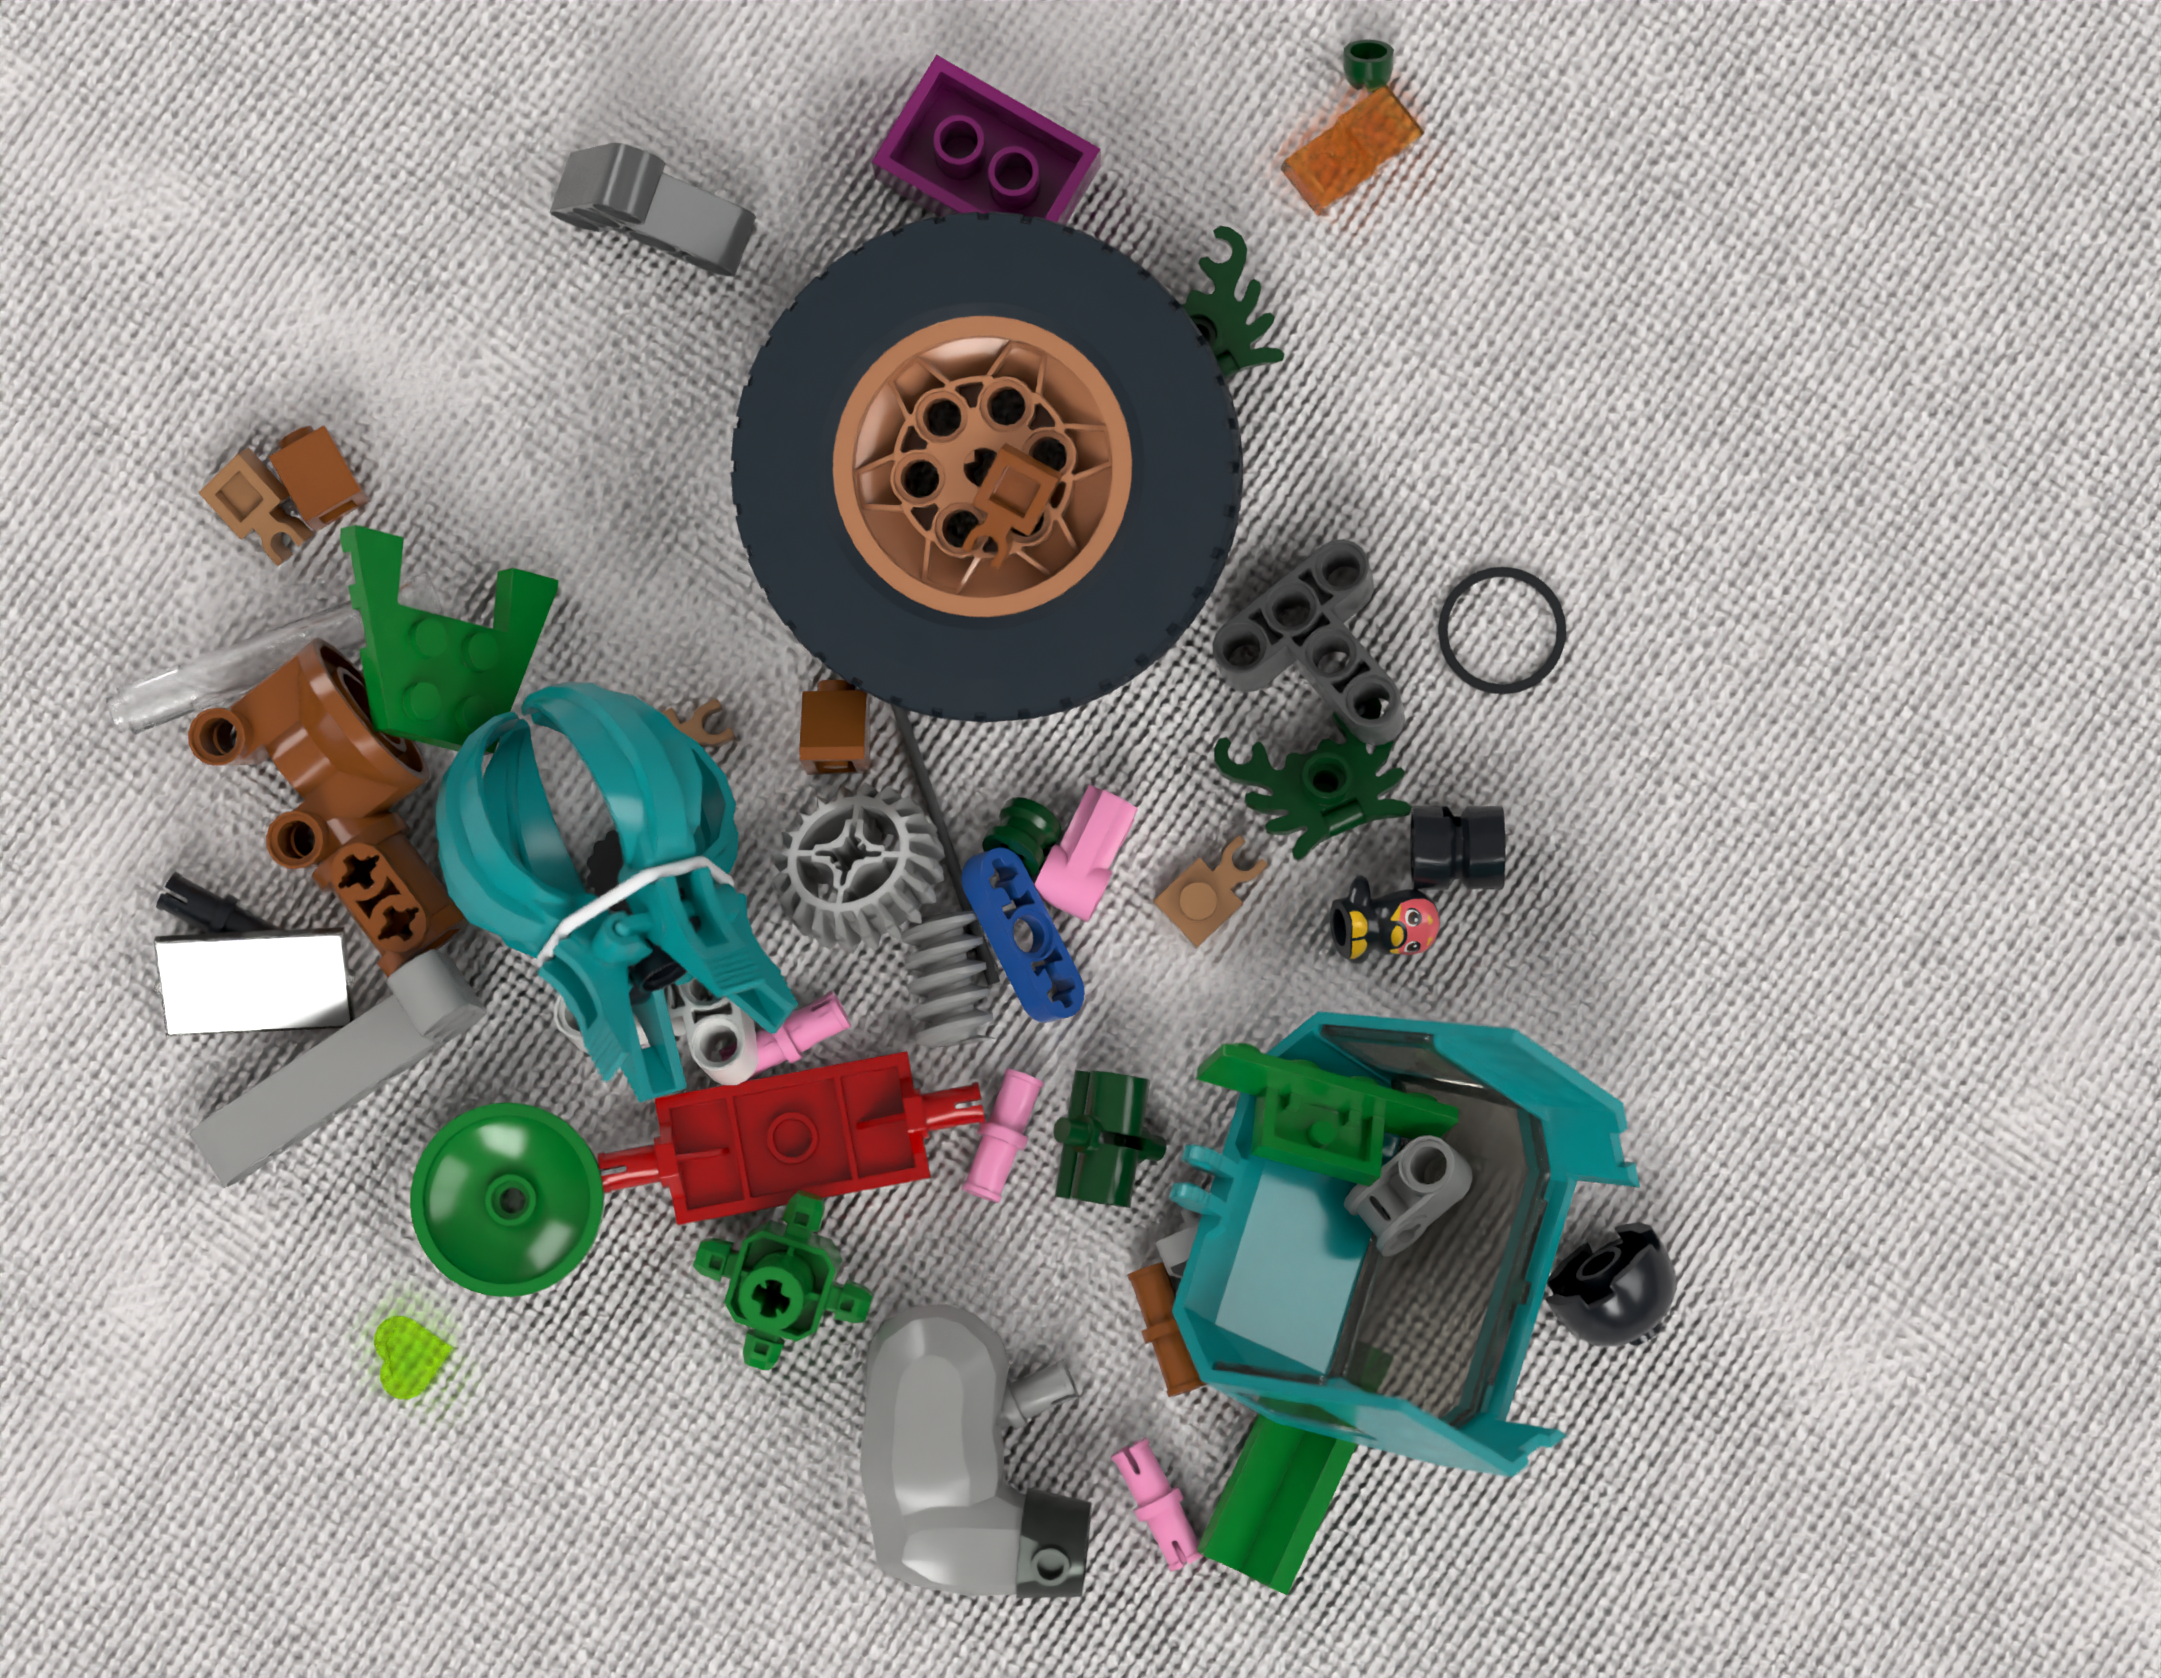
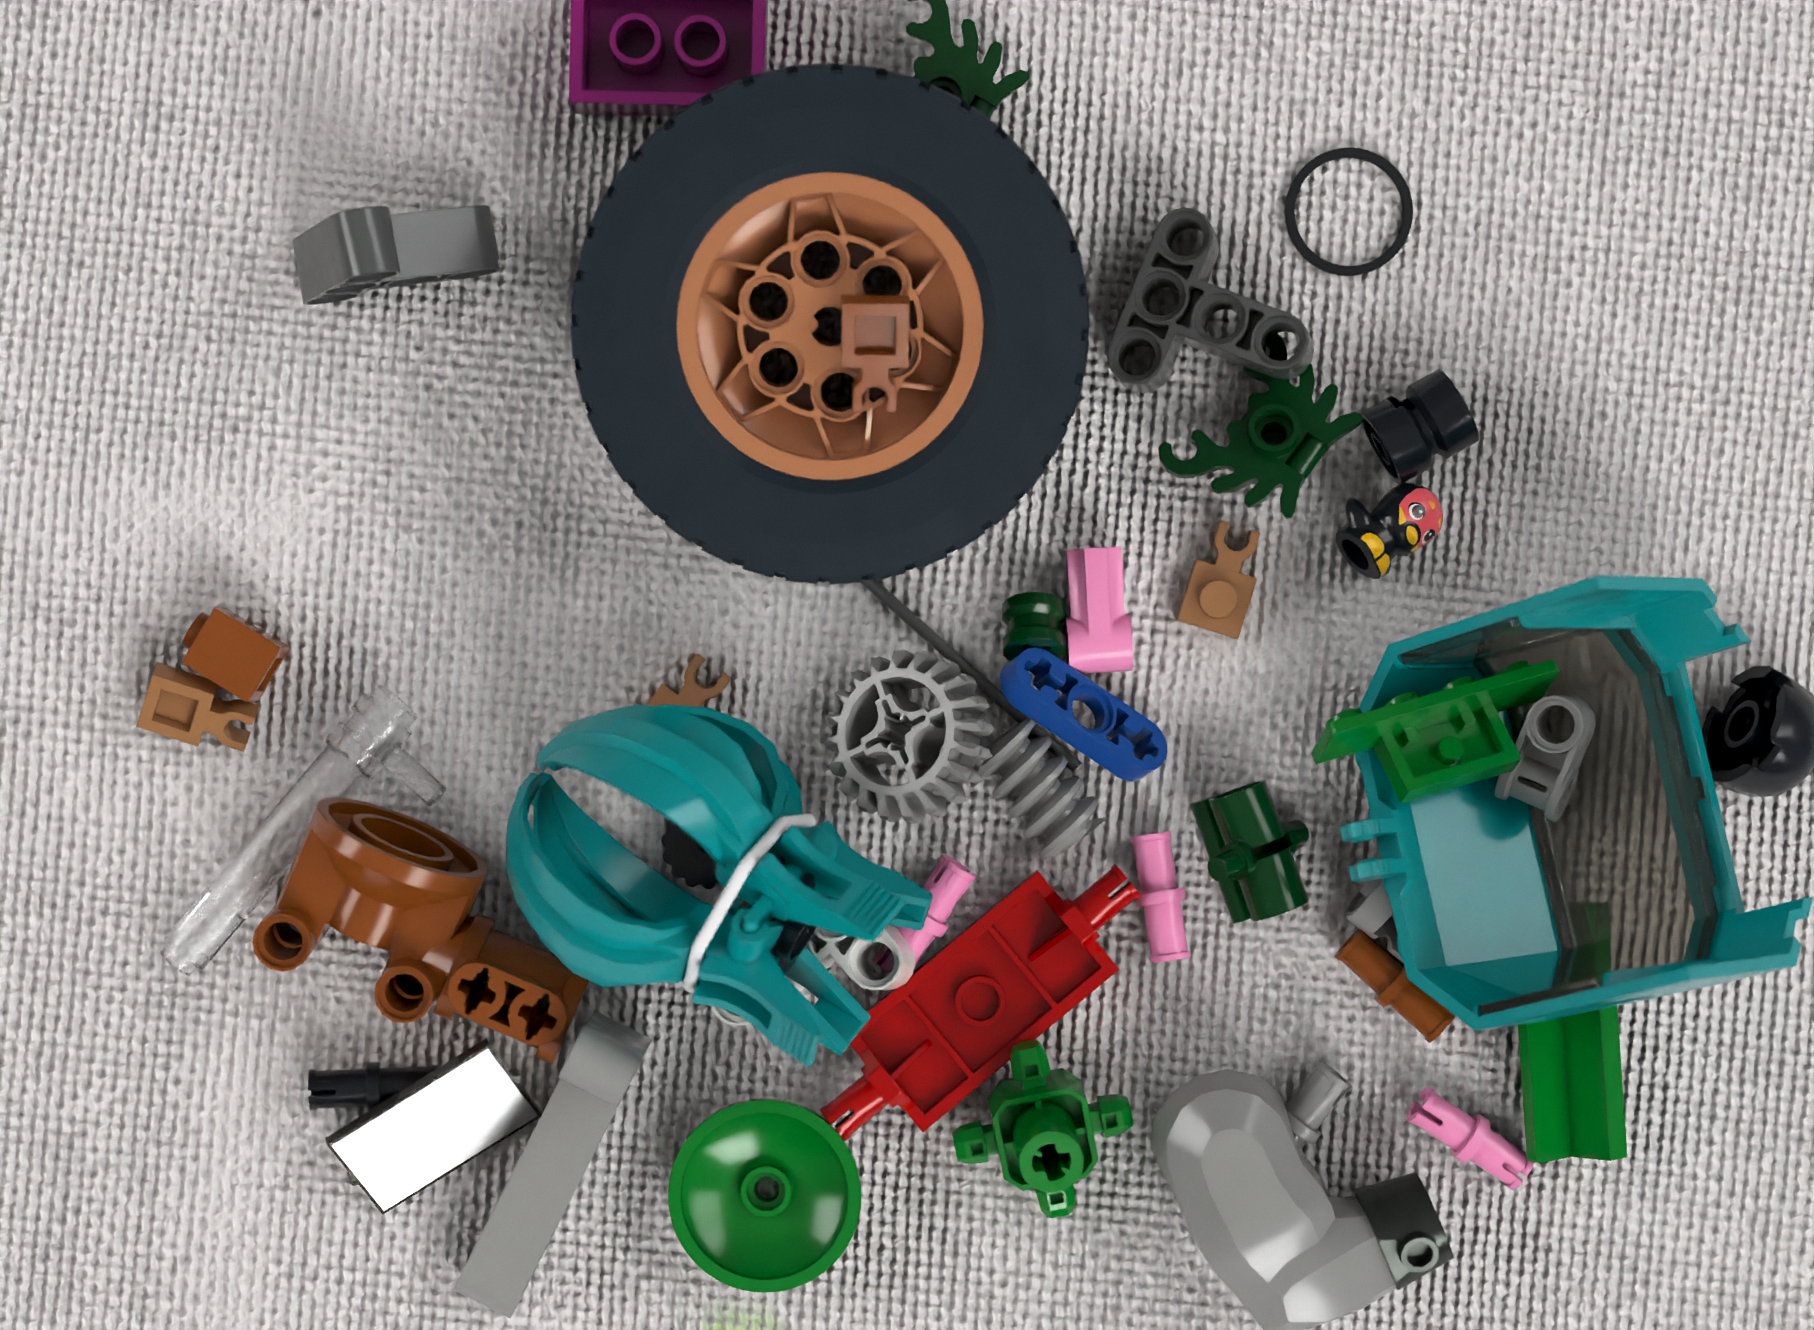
camera: 30 degrees left, 5 degrees up
(435, 673) = (442, 776): green wing -> none
(835, 729) = (817, 624): dark orange slope -> none

